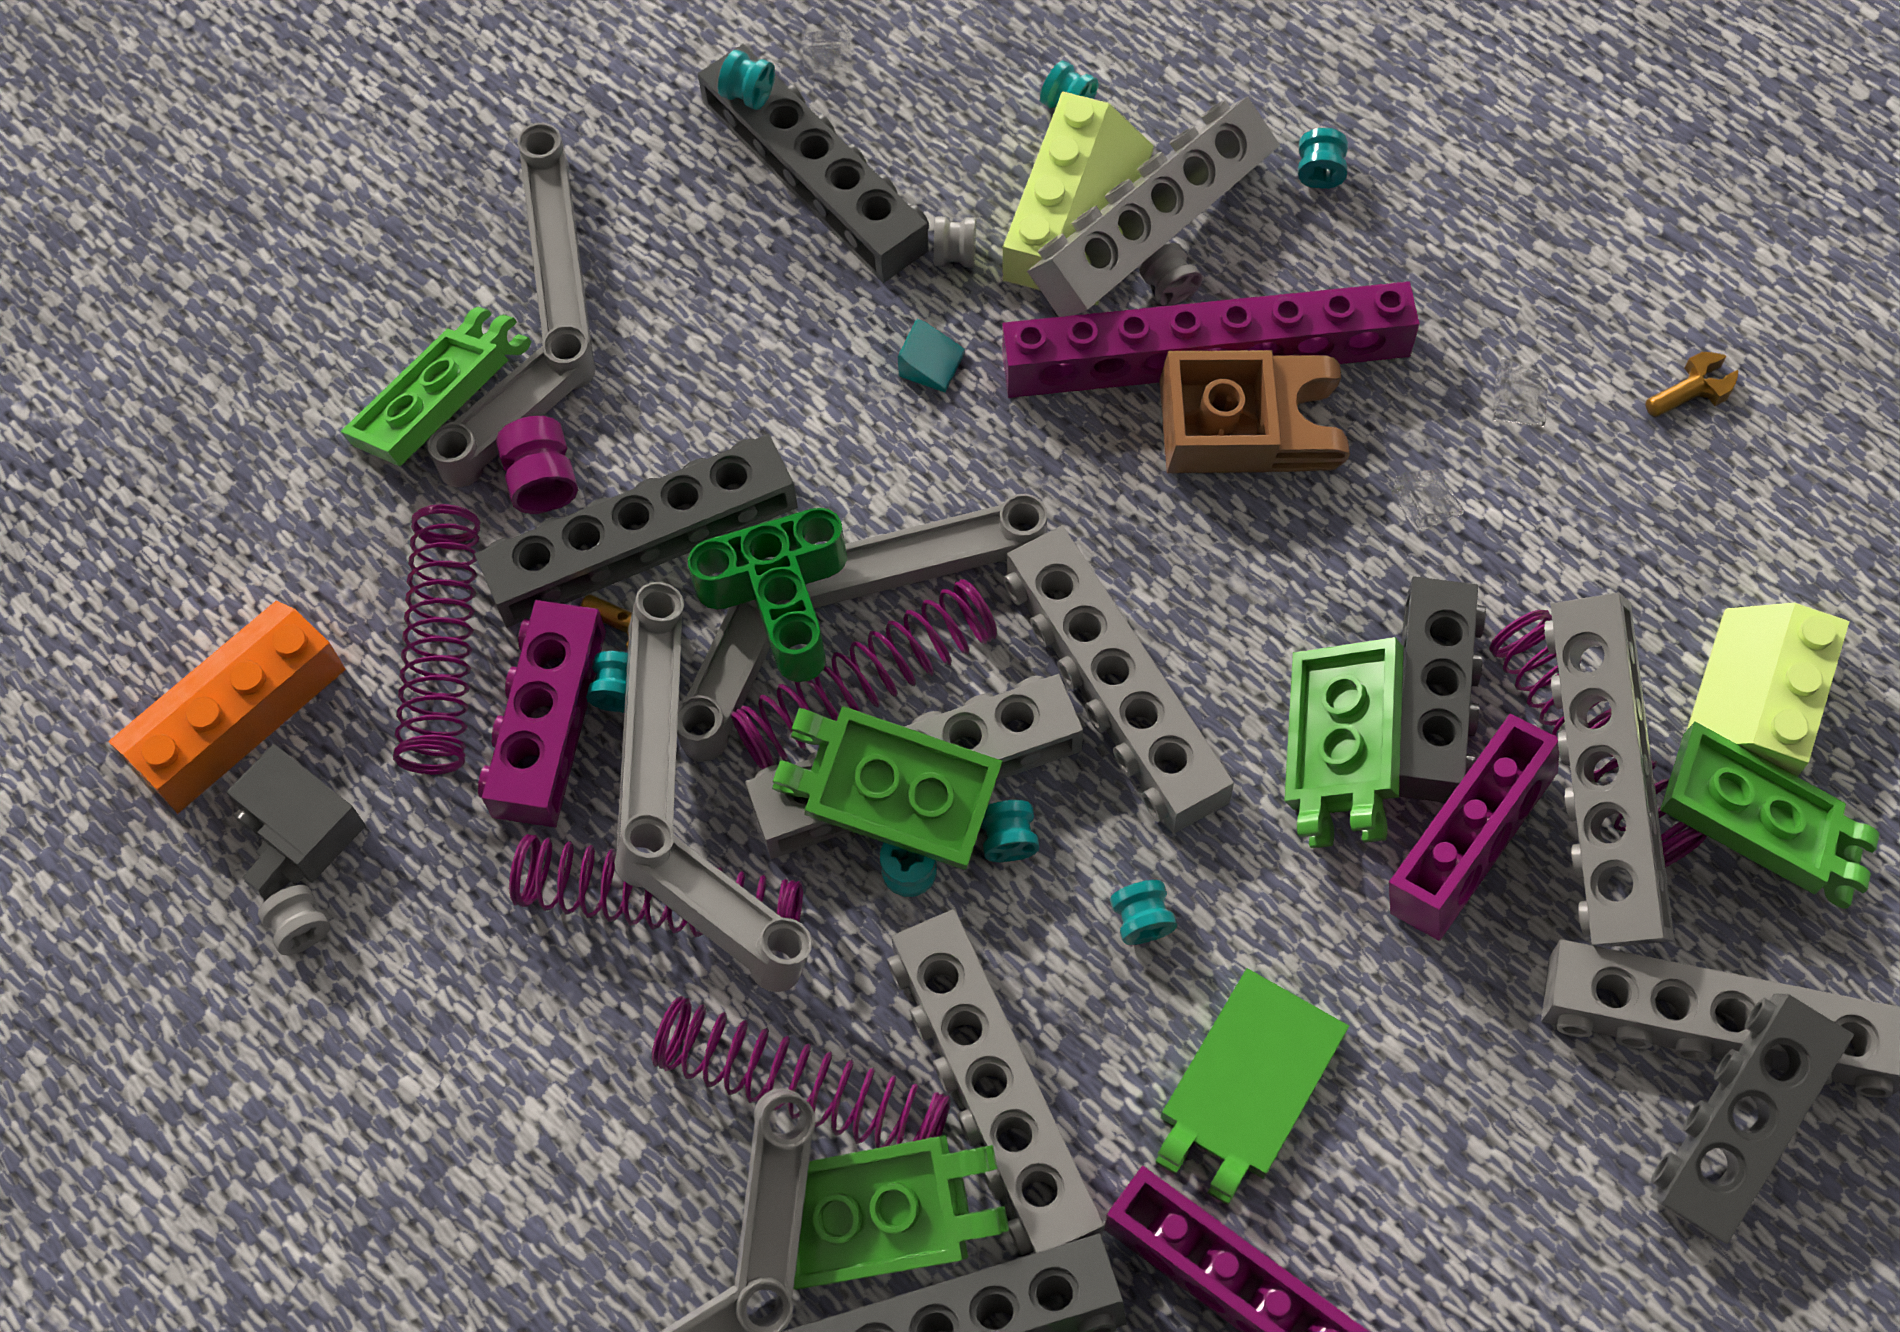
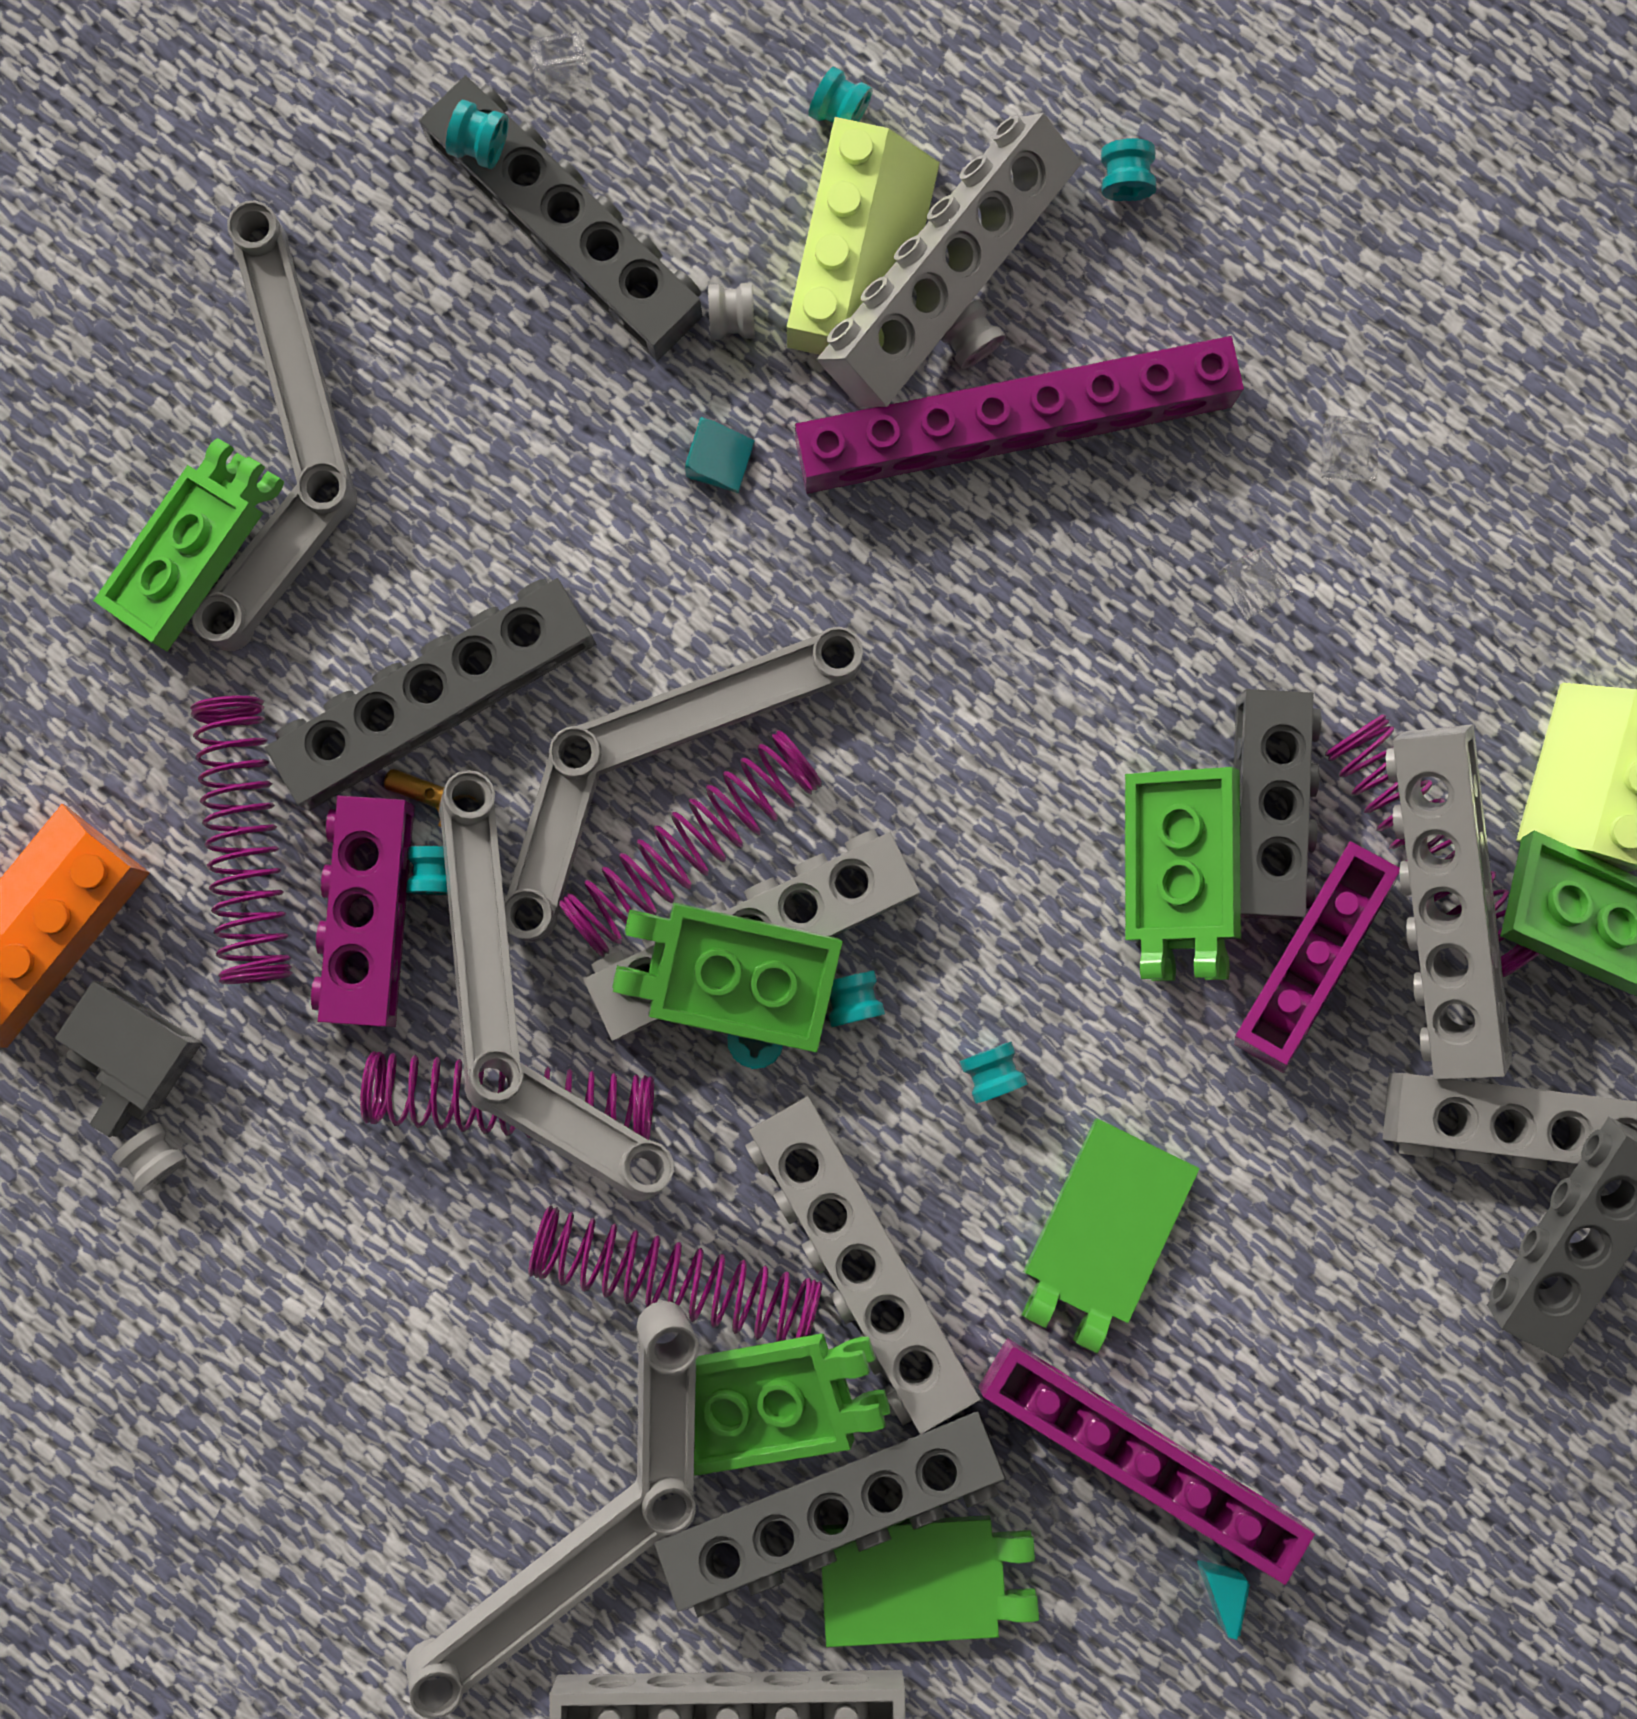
camera: 10 degrees left, 20 degrees up
(536, 464) = (309, 620): magenta wheel -> none
(767, 582) = (588, 762): green beam -> none
(1057, 564) = (877, 696): light grey brick -> none
(1244, 415) = (1078, 498): medium nougat brick -> none
(1695, 385) = (1532, 422): pearl gold bar -> none

